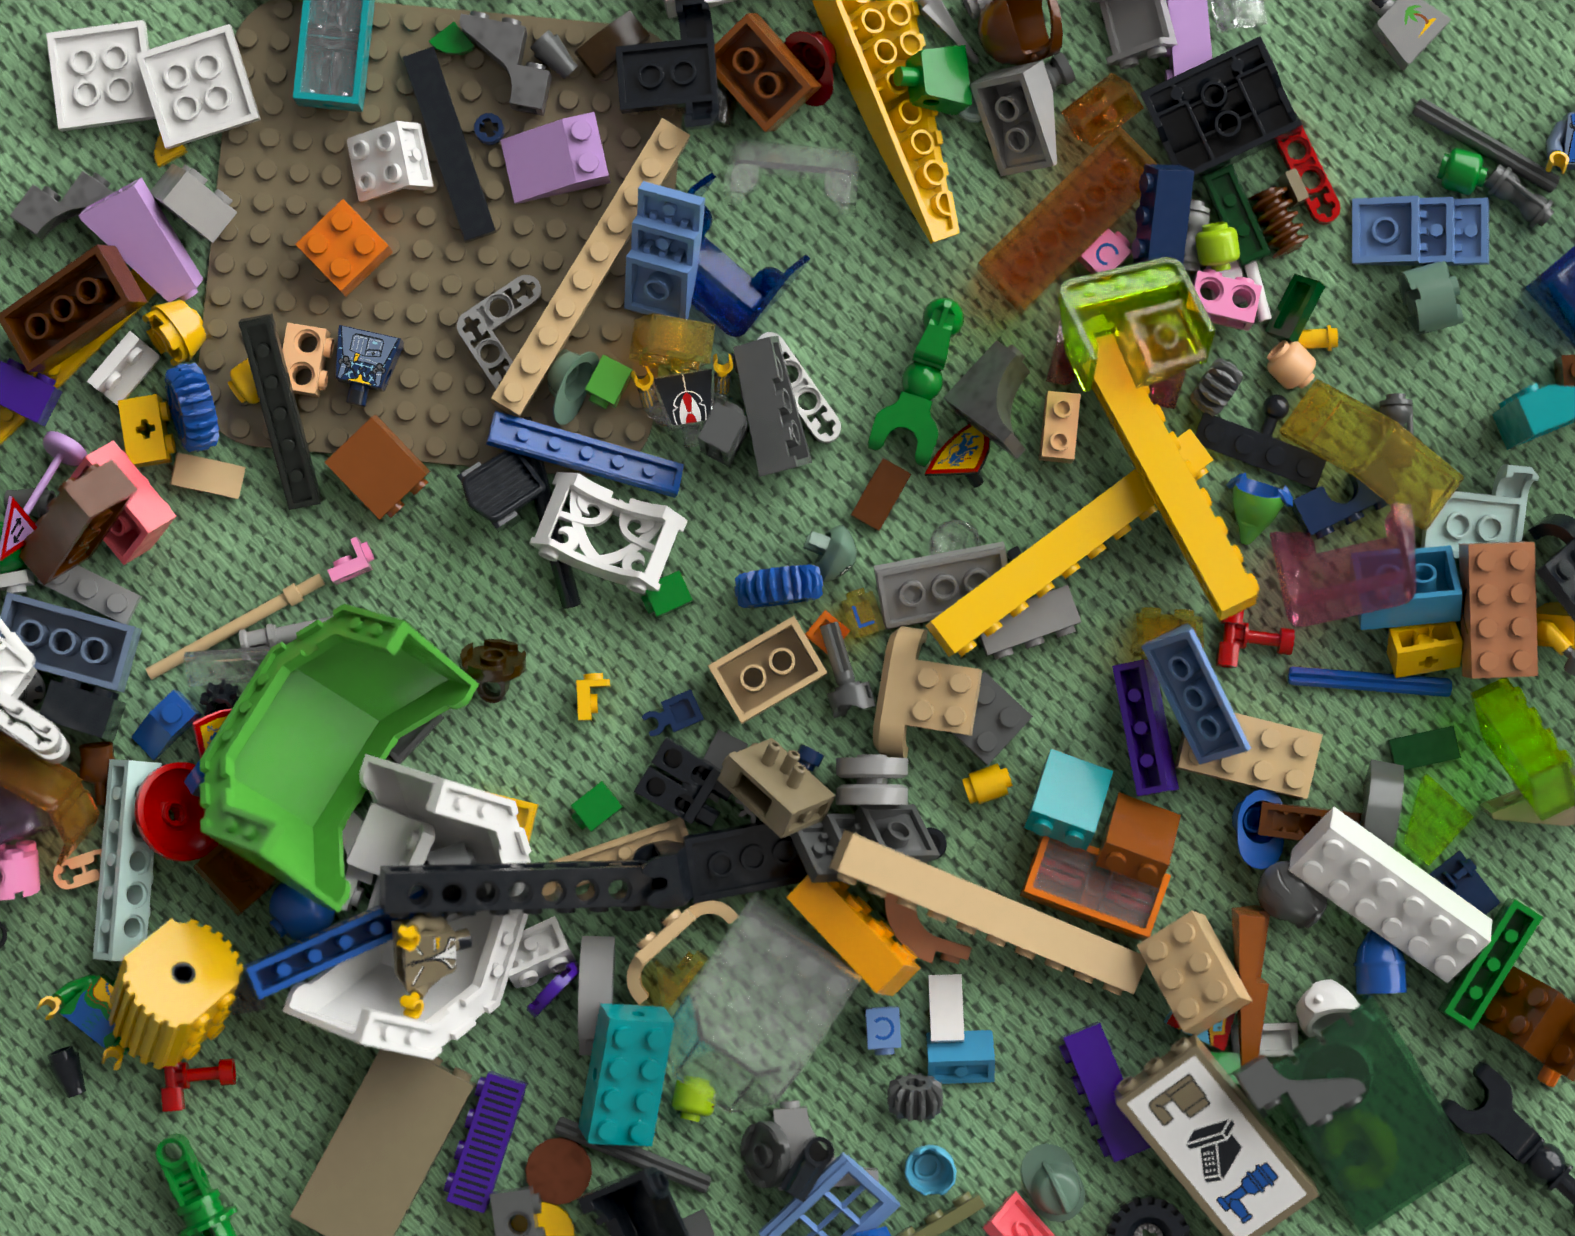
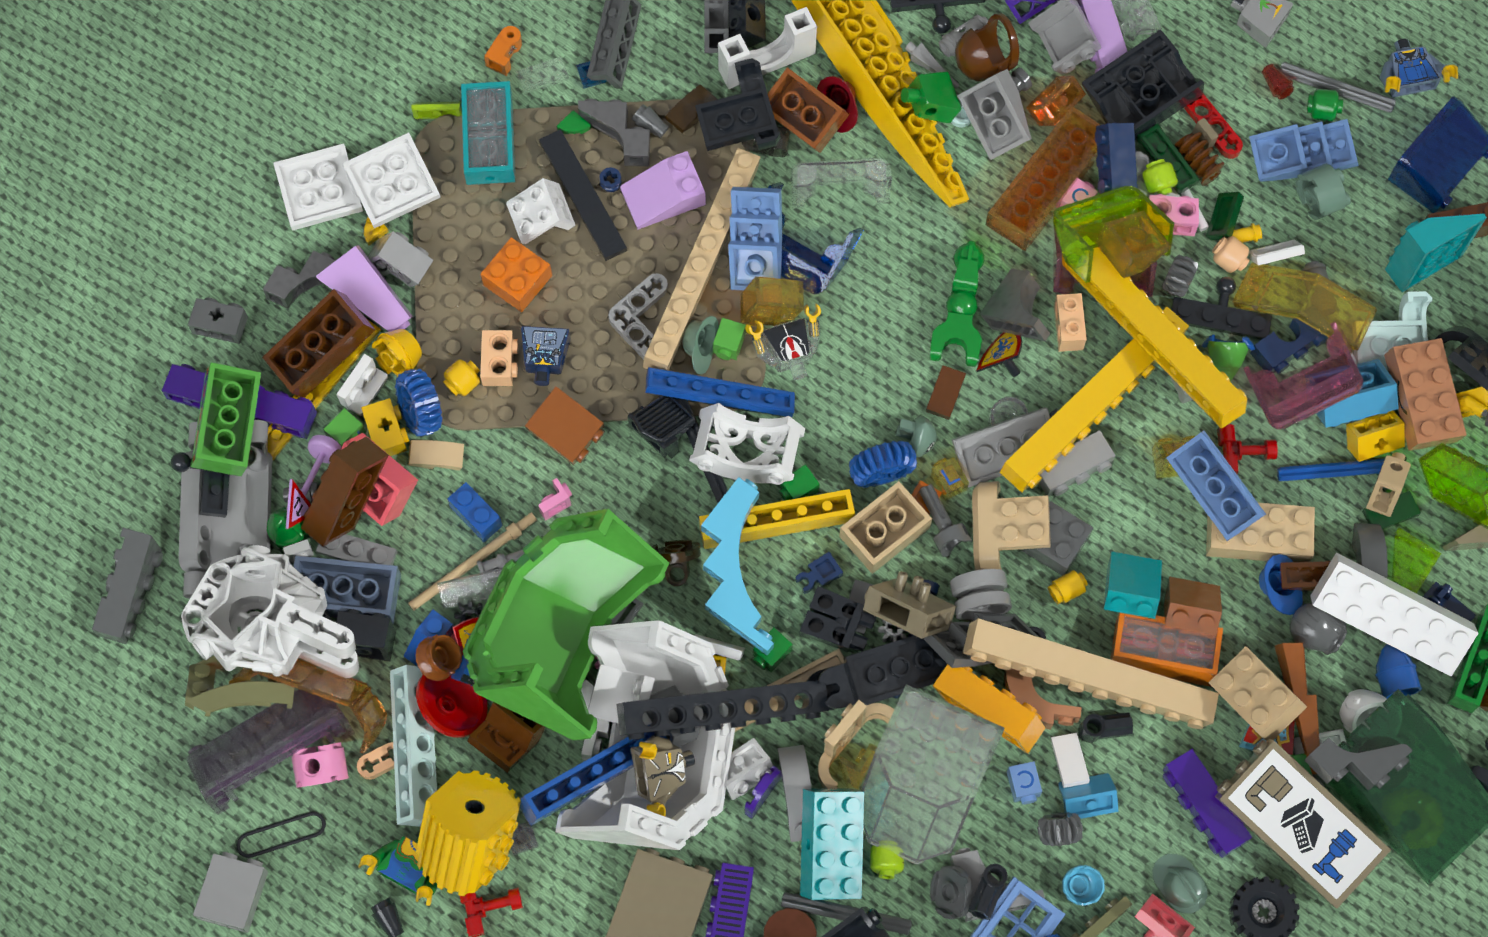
camera: 10 degrees left, 15 degrees down
(92, 425) = (344, 427): none -> bright green brick
(95, 767) = (379, 679): reddish brown piece -> none
(170, 757) = (438, 657): none -> dark orange piece
(246, 564) = (475, 512): none -> blue brick
(280, 411) = (486, 394): pearl dark grey tile -> none
(296, 914) = (554, 757): blue brick -> none
(528, 791) = (725, 649): none -> white tile
(551, 743) = (730, 600): none -> medium azure arch
(587, 702) = (751, 573): yellow bracket -> none
(629, 636) = (792, 516): none -> yellow brick
(723, 433) = (823, 355): dark grey brick -> none
(770, 406) = (853, 338): dark grey wedge -> none
(805, 384) = (868, 327): white beam -> none
(1003, 973) = (1108, 726): none -> black piece
(1145, 728) = (1179, 525): dark purple brick -> none
(1352, 371) = (1276, 252): none -> white tile
(1407, 126) = (1278, 82): none -> clear red cone
(1427, 717) = (1391, 476): none -> tan torso
(1507, 186) = (1361, 112): dark grey piece -> none

